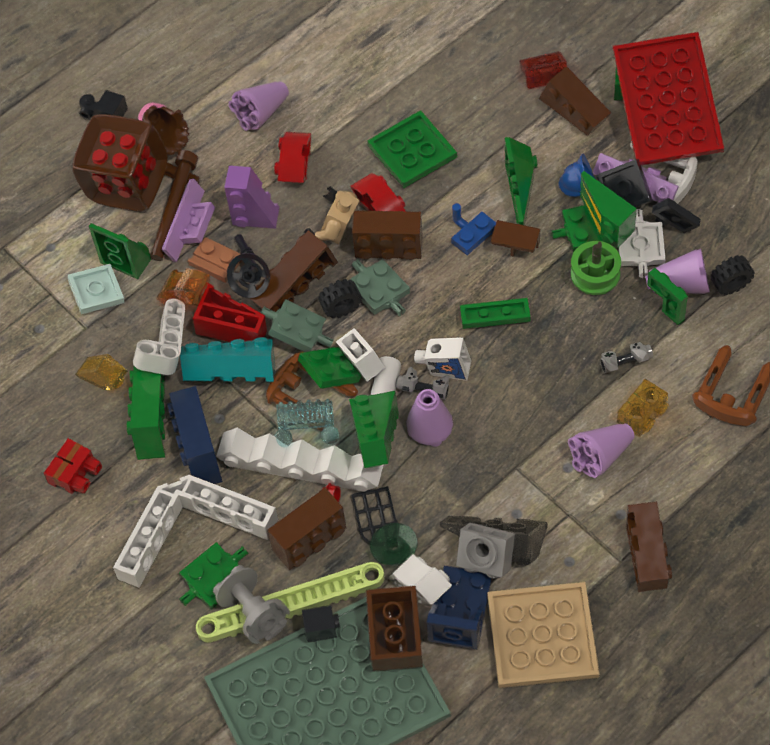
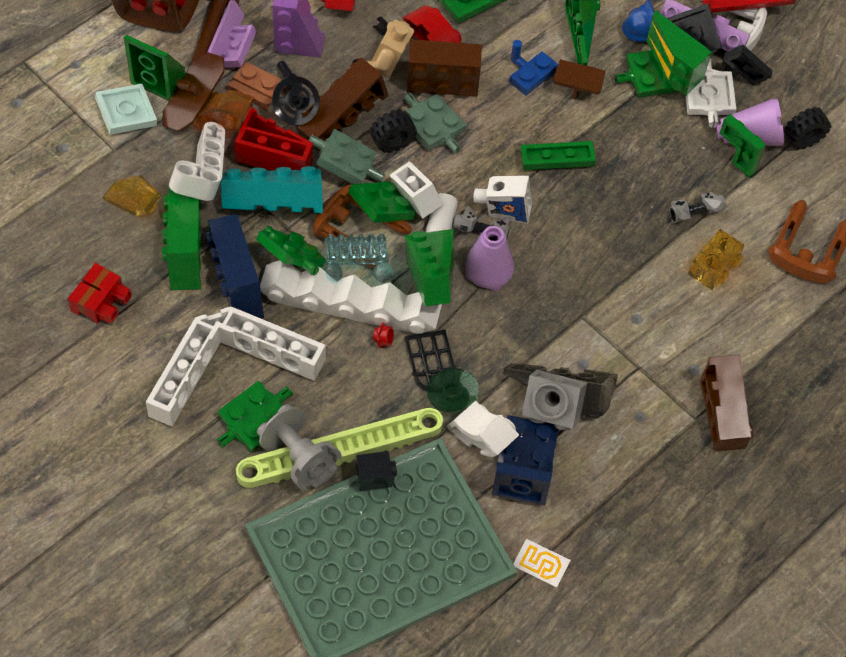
camera: 10 degrees left, 0 degrees up
(156, 270) = (193, 91): none -> reddish brown shield
(245, 417) = (292, 249): none -> green plate
(307, 529) = (360, 370): reddish brown brick -> none
(394, 628) = (457, 478): reddish brown brick -> none
(474, 703) = (541, 563): none -> white sticker
(542, 635) = (615, 492): tan plate -> none
(595, 267) = (664, 113): bright green wheel -> none
(599, 448) = (671, 299): lavender cone -> none

